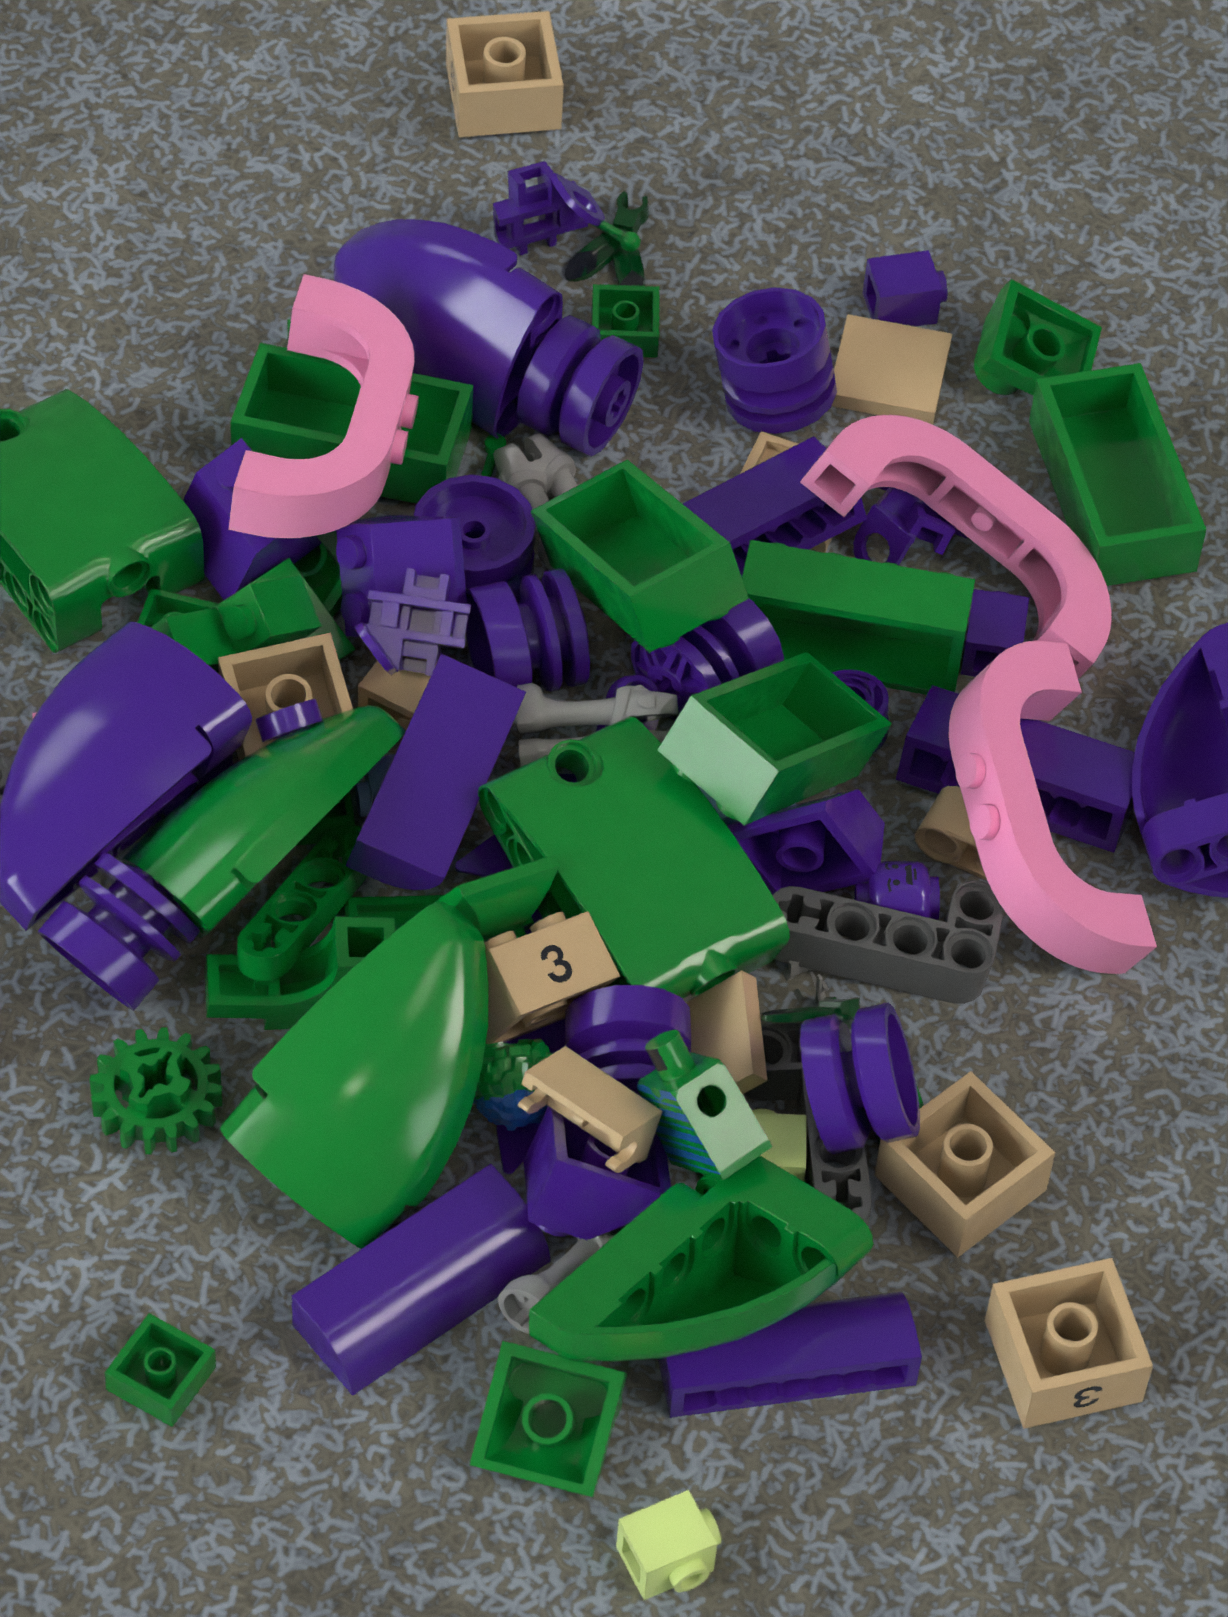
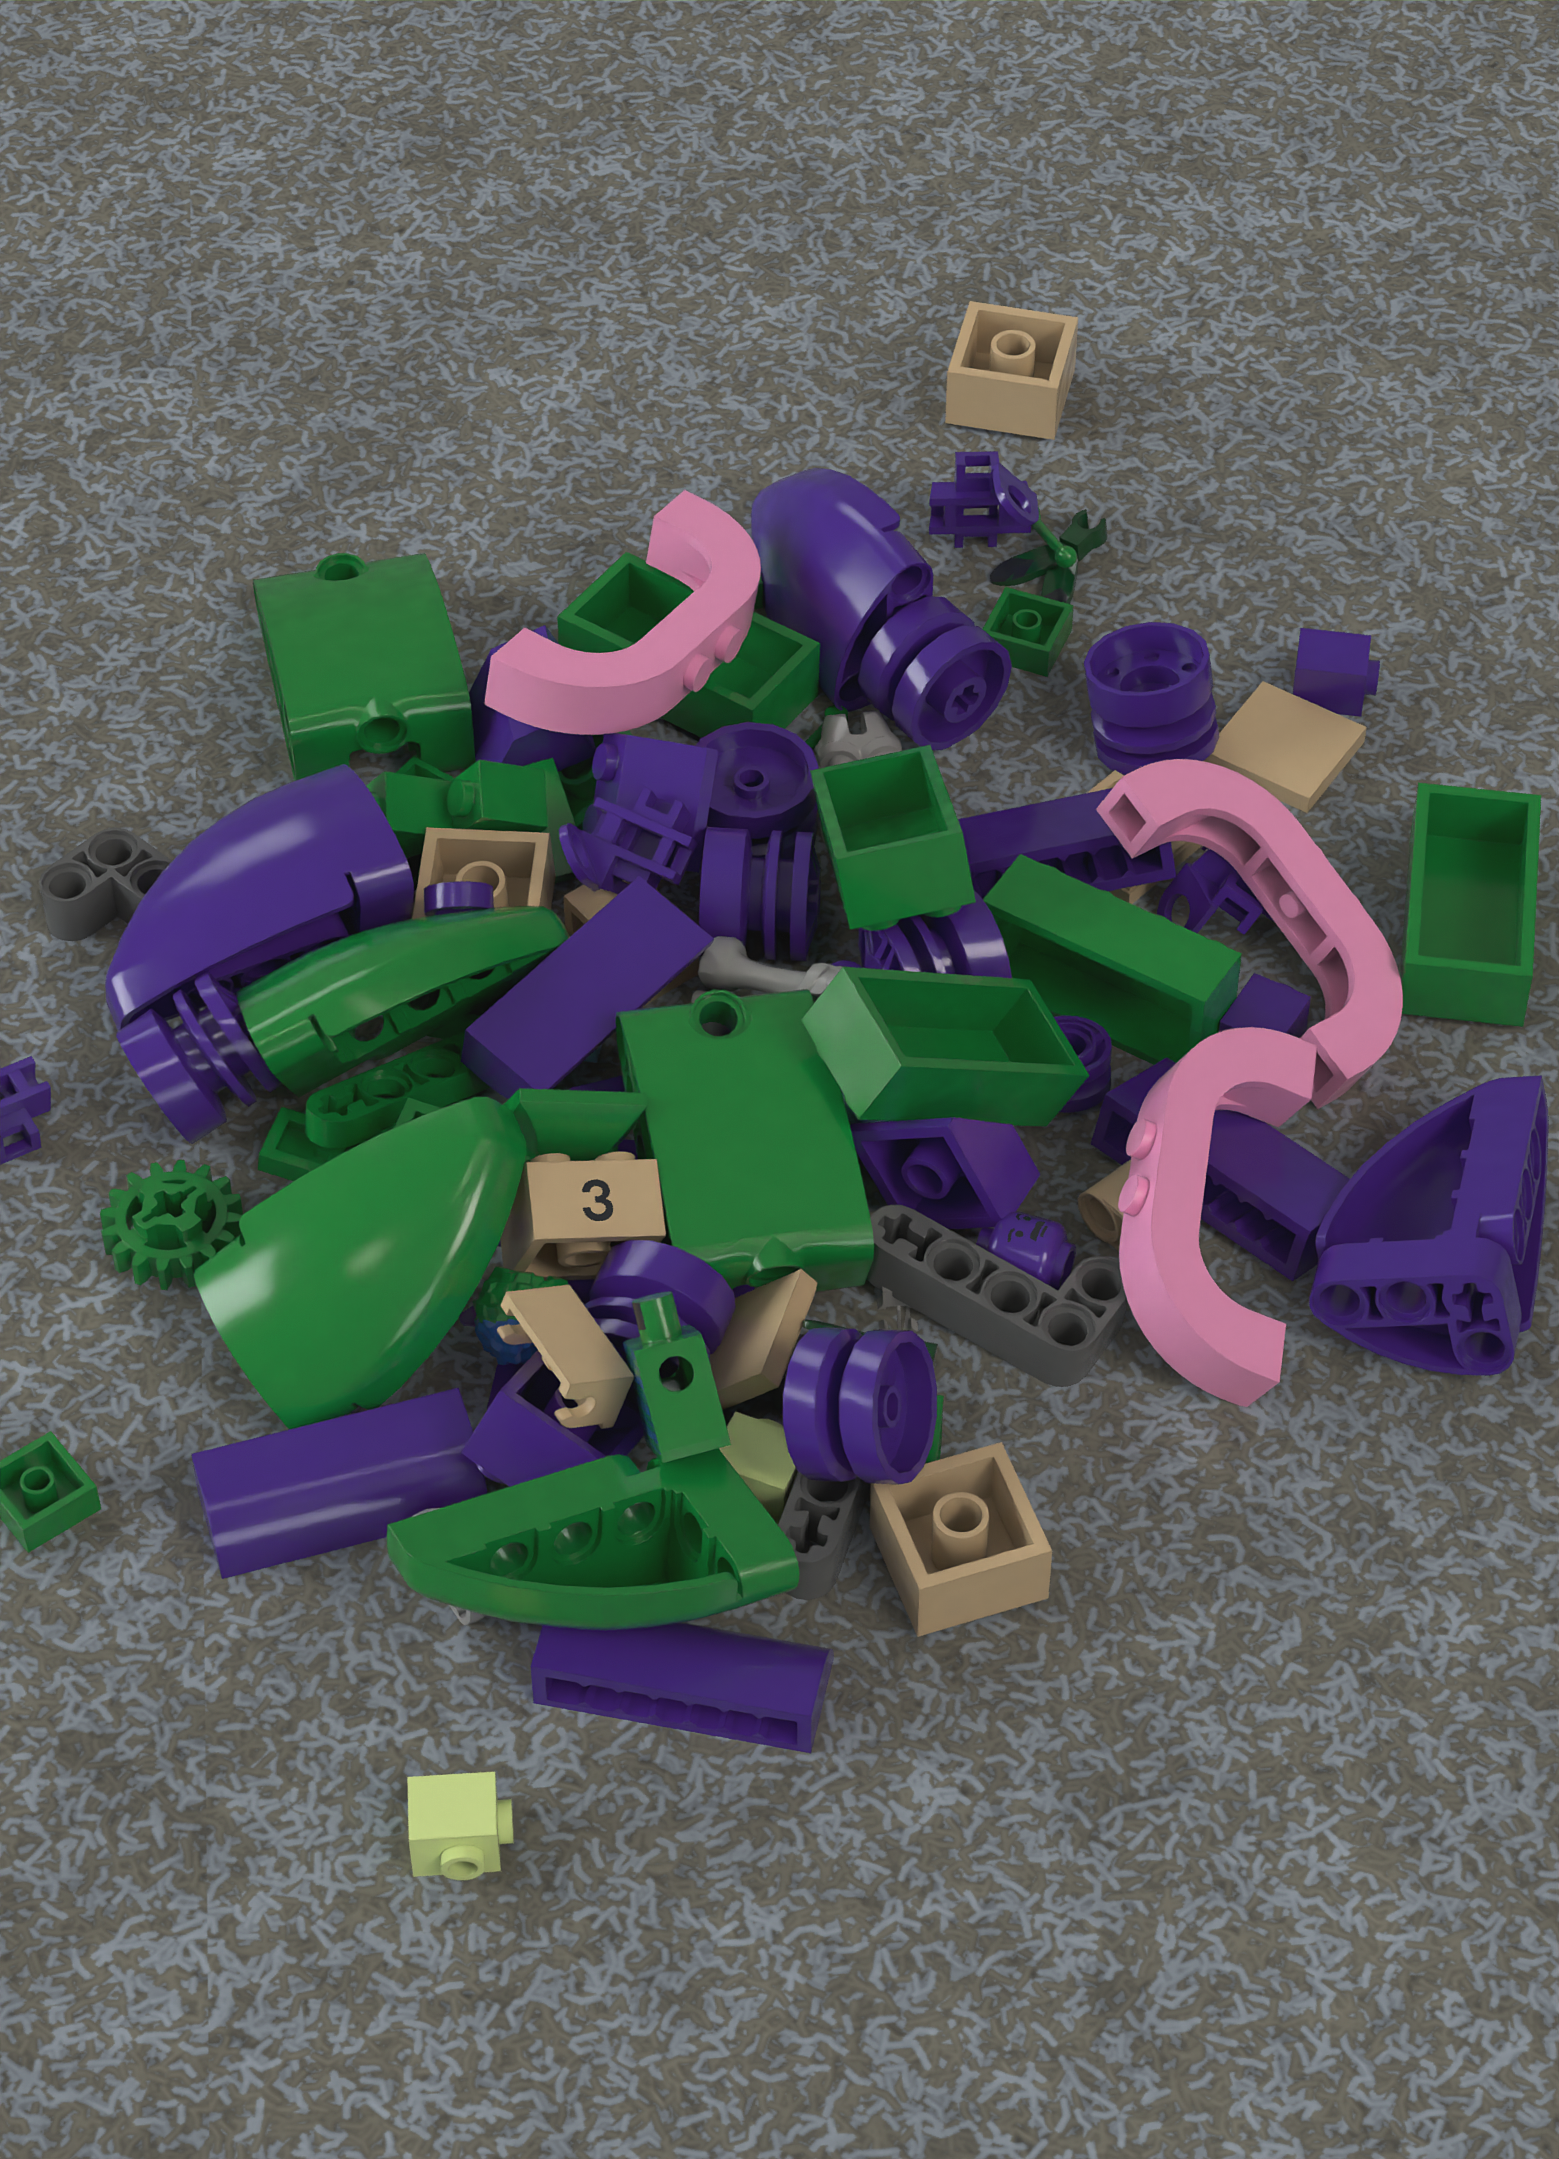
camera: 25 degrees right, 5 degrees down
(548, 1419) = (395, 1659): green slope -> none
(1031, 340) = (1447, 746): green slope -> none
(1068, 1343) = (980, 1754): tan brick -> none

